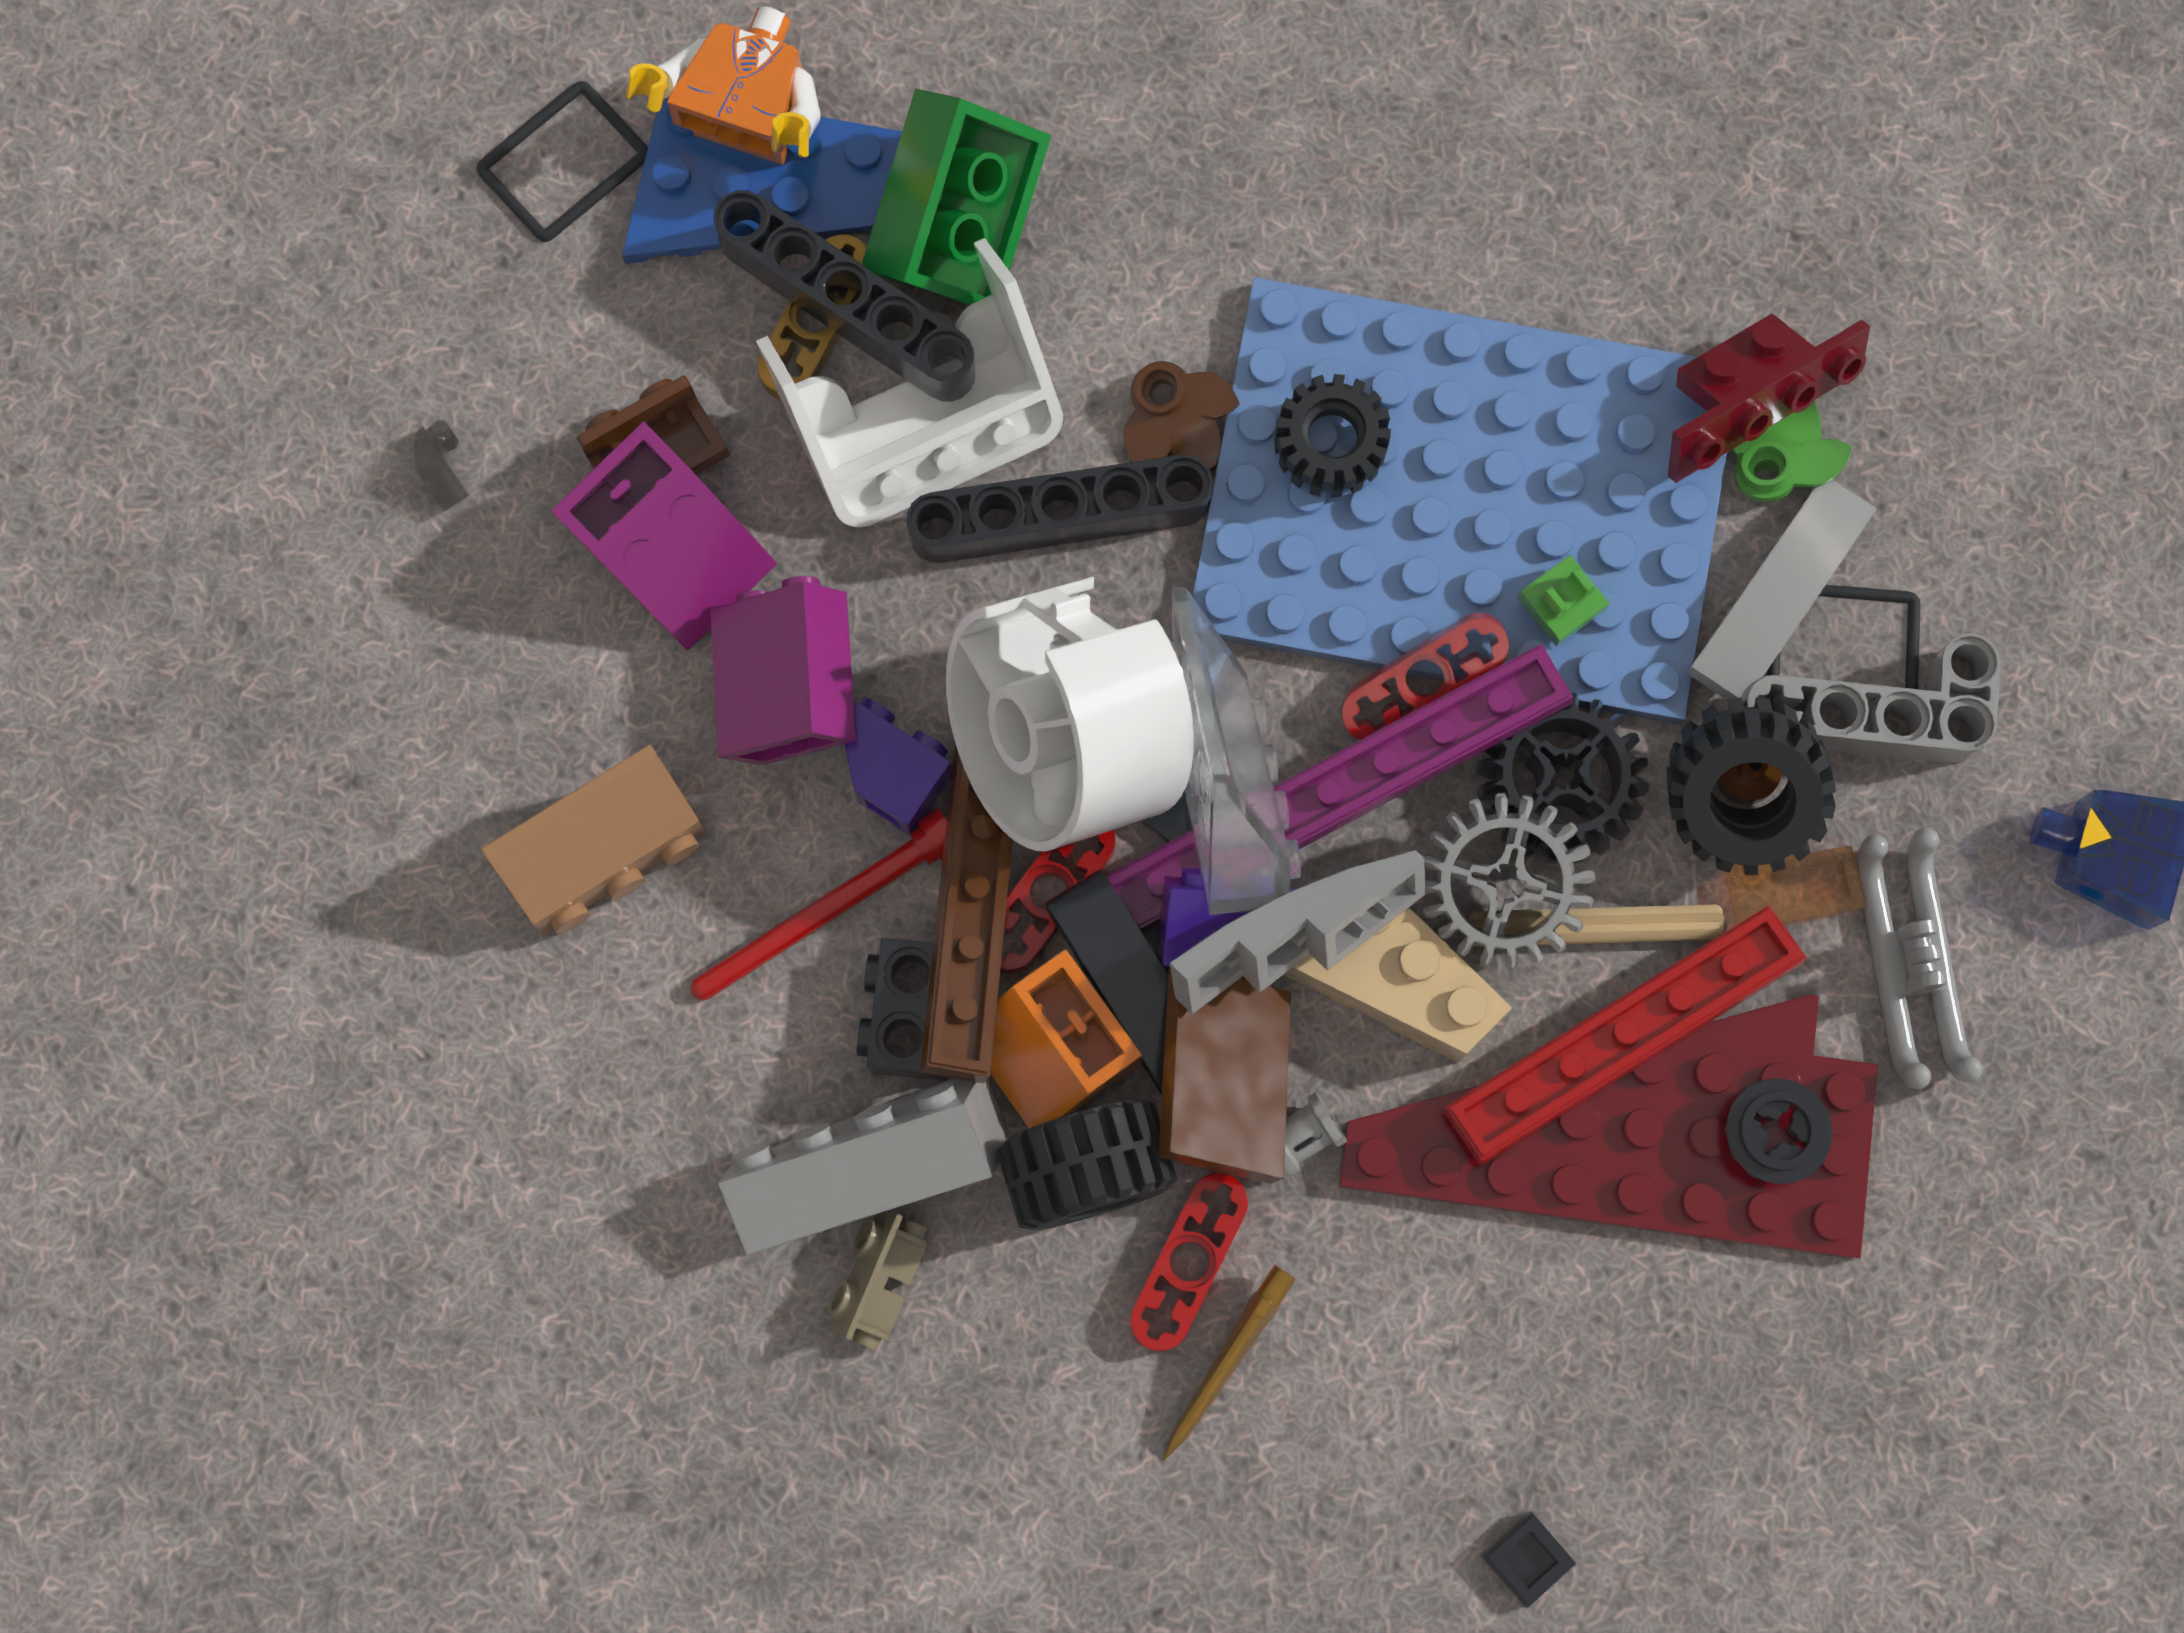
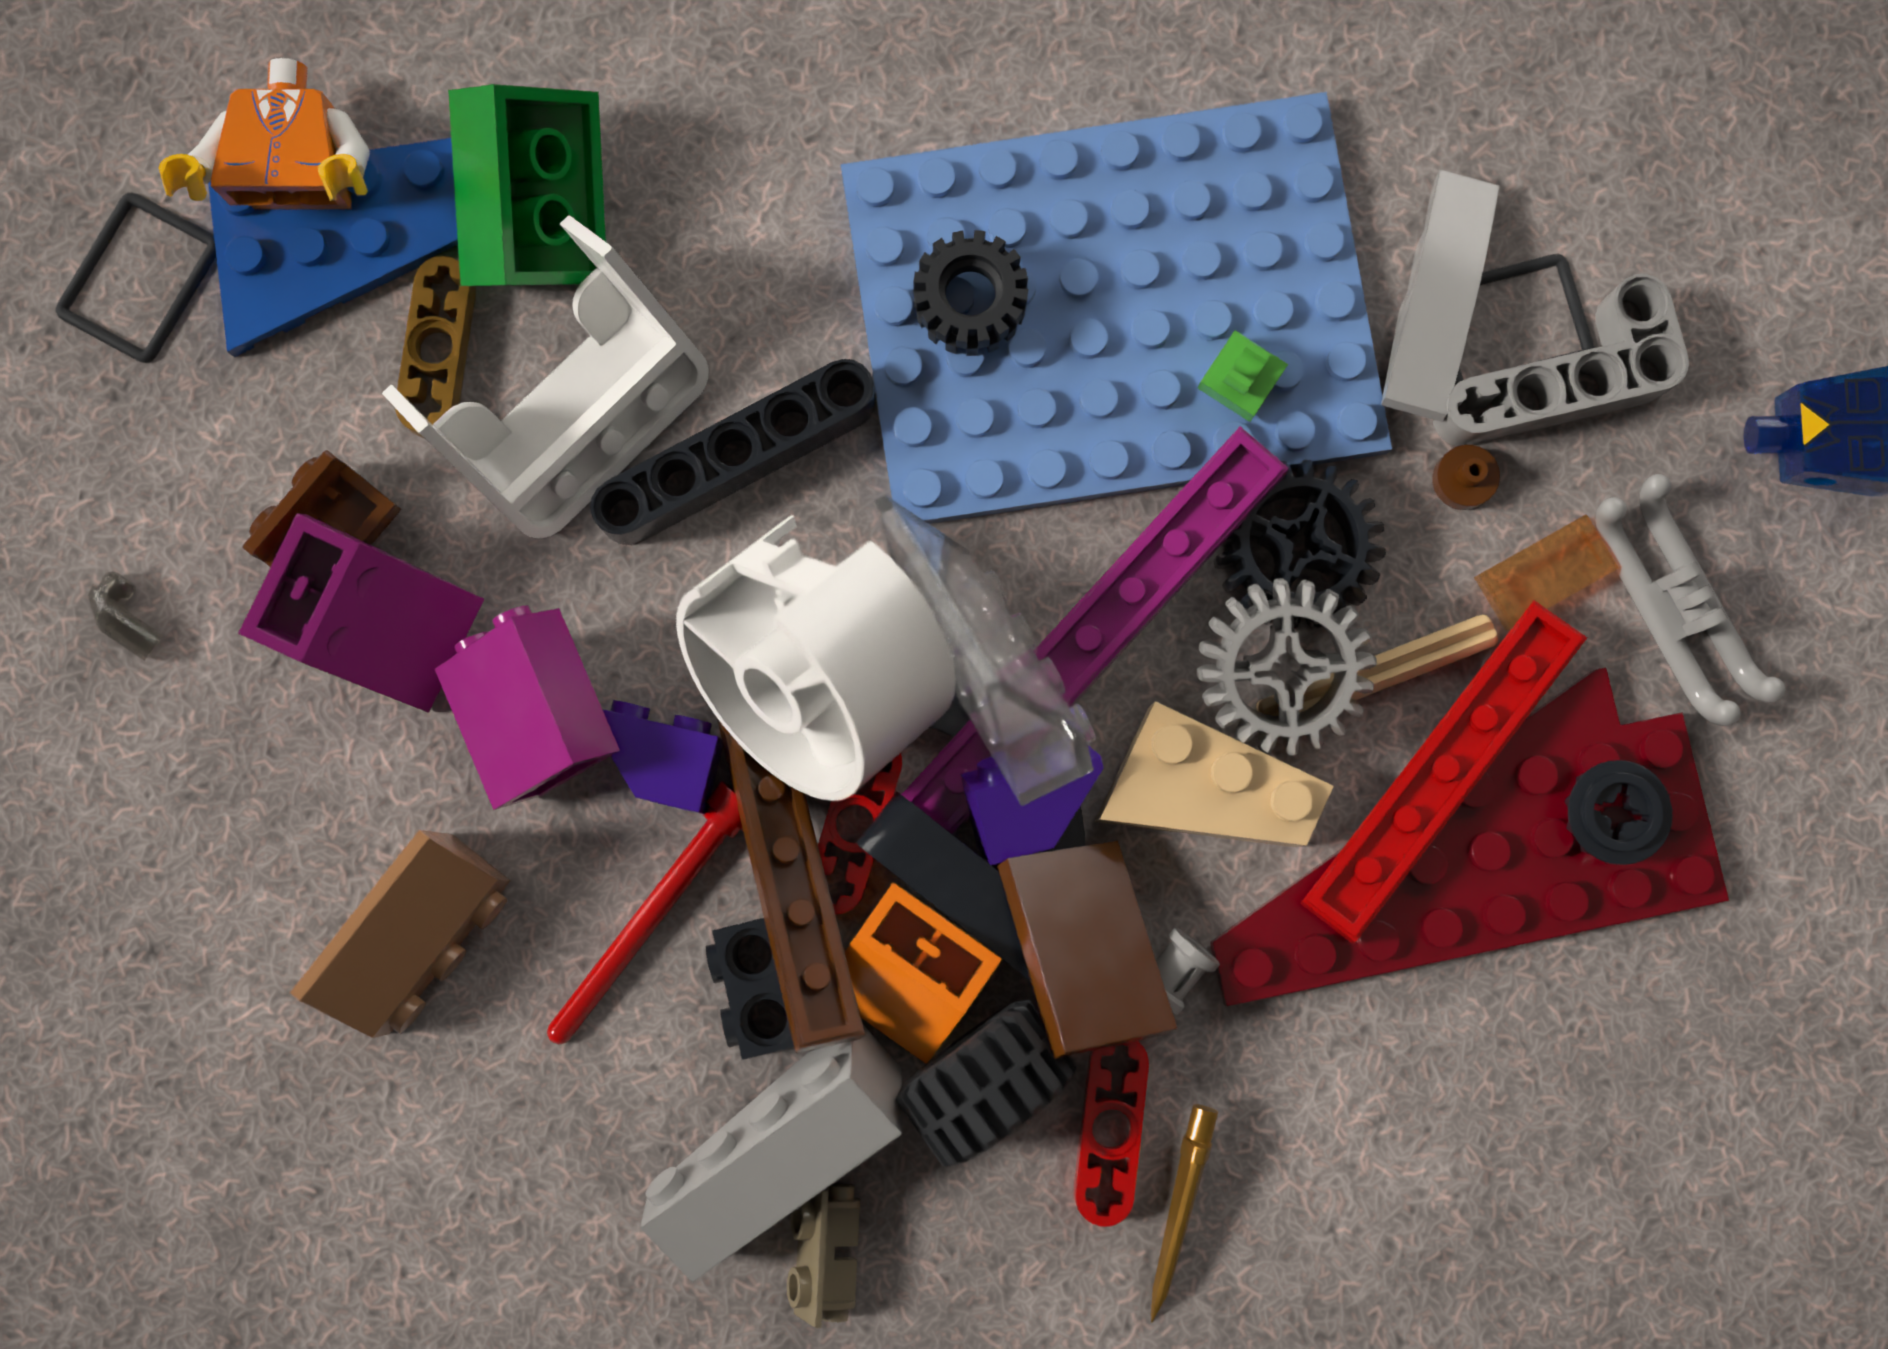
camera: 20 degrees left, 5 degrees up
(833, 270) = (432, 297): black beam -> none
(1183, 423) = (822, 330): reddish brown plate -> none
(1317, 920) = (1126, 773): light grey slope -> none
(1455, 635) = (1154, 446): red beam -> none
(1528, 1559) = (1521, 1292): black tile -> none
(1756, 383) = (1349, 104): dark red bracket -> none
(1759, 833) = (1508, 530): black tyre -> none
(1794, 452) = (1396, 155): bright green plate -> none

